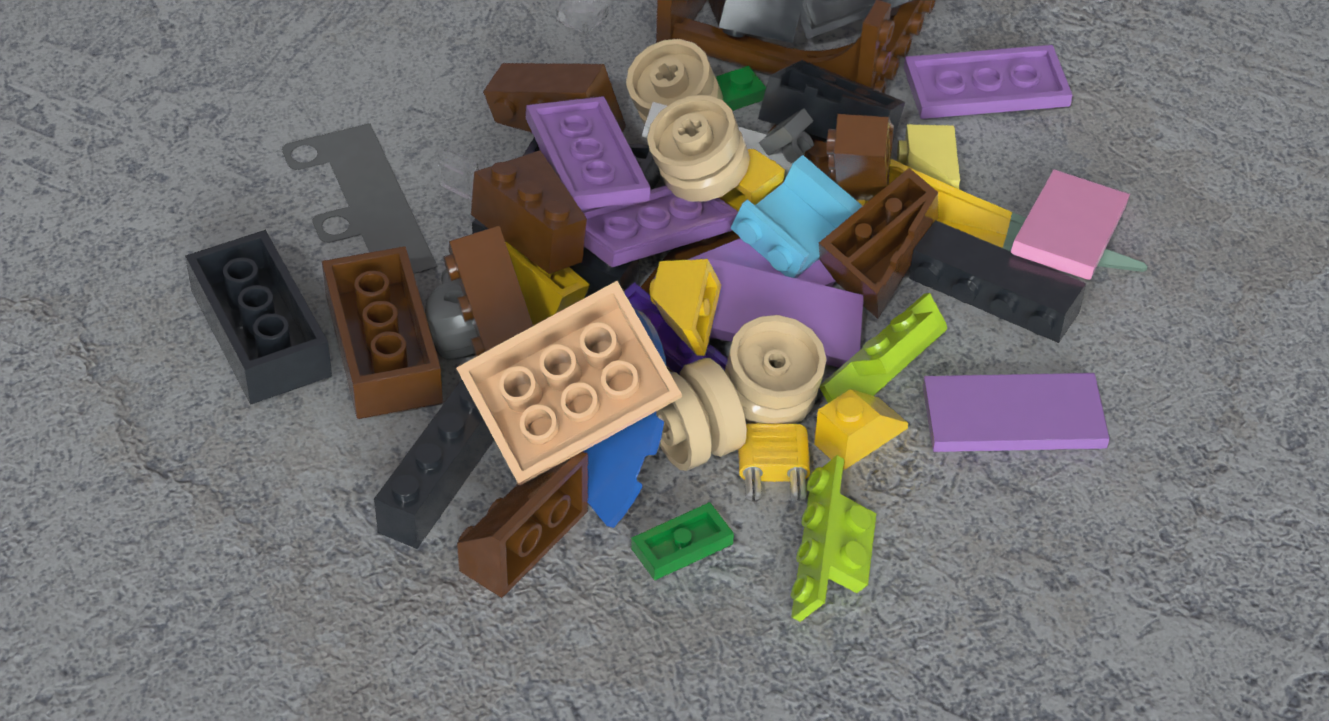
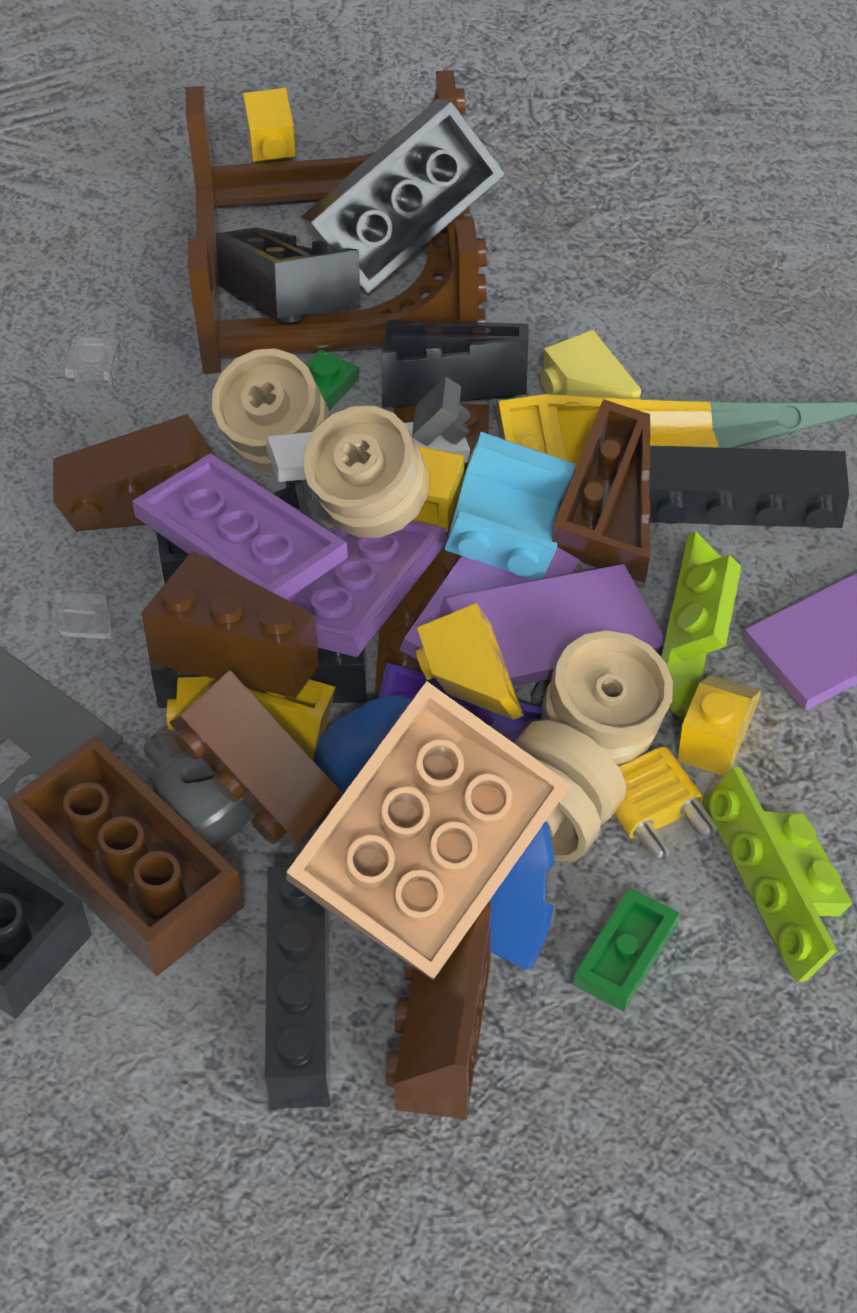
camera: 25 degrees left, 5 degrees up
(860, 154) = (551, 402): reddish brown wedge -> none
(987, 81) = (580, 266): medium lavender plate -> none
(1070, 224) = (779, 391): bright pink tile -> none

